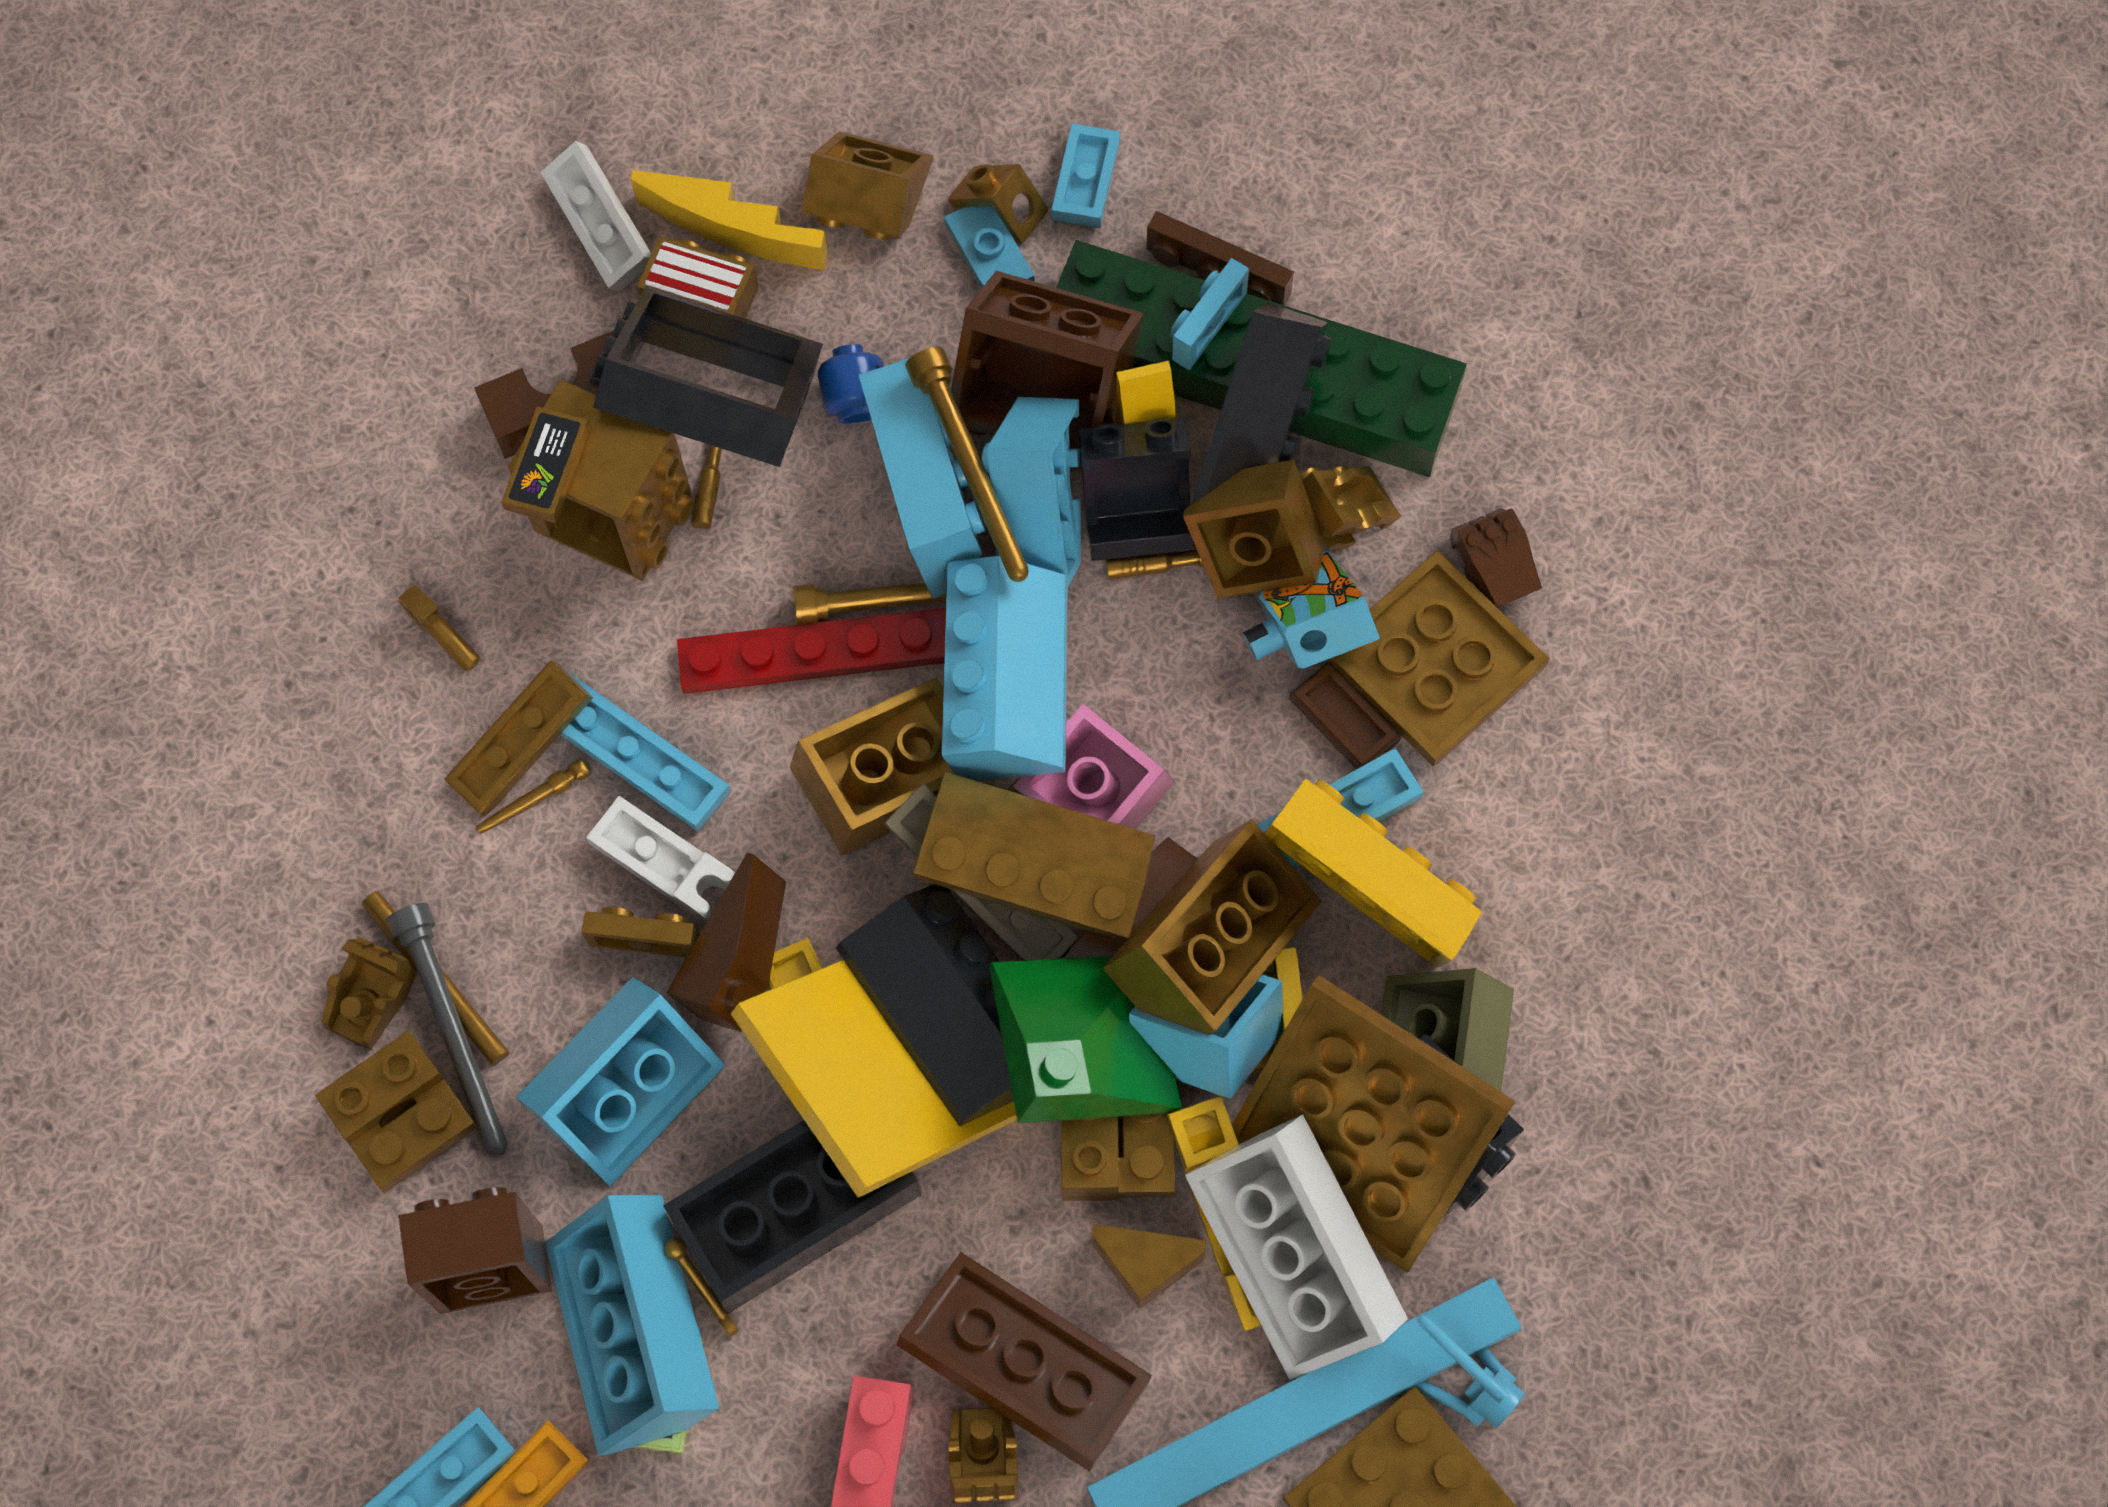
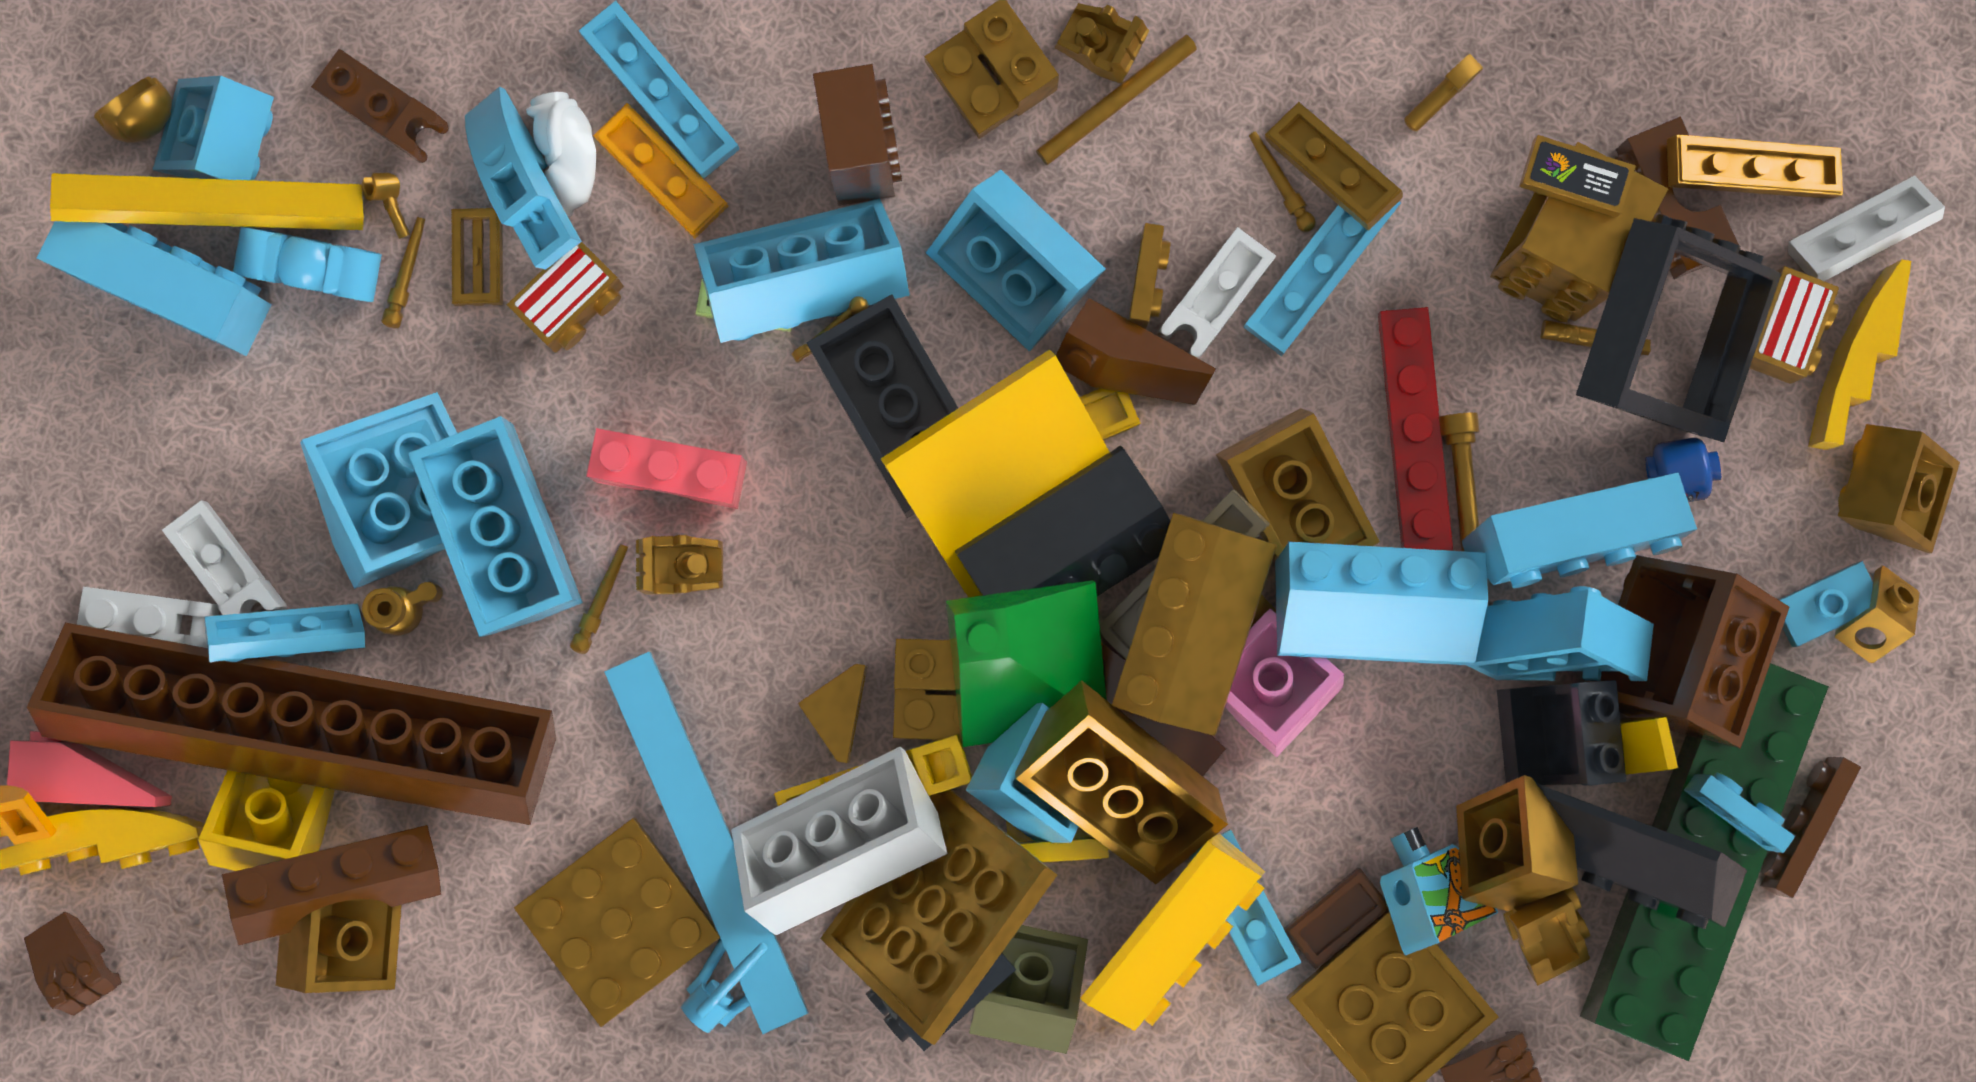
camera: 90 degrees right, 15 degrees up
(414, 930) = (1153, 79): dark grey piece -> none
(529, 319) = (1754, 167): none -> tile
(931, 373) = (1672, 540): pearl gold piece -> none
(1024, 1361) = (754, 602): reddish brown plate -> none
(1086, 175) = (1906, 700): medium azure plate -> none
(1149, 564) = (1493, 742): pearl gold piece -> none

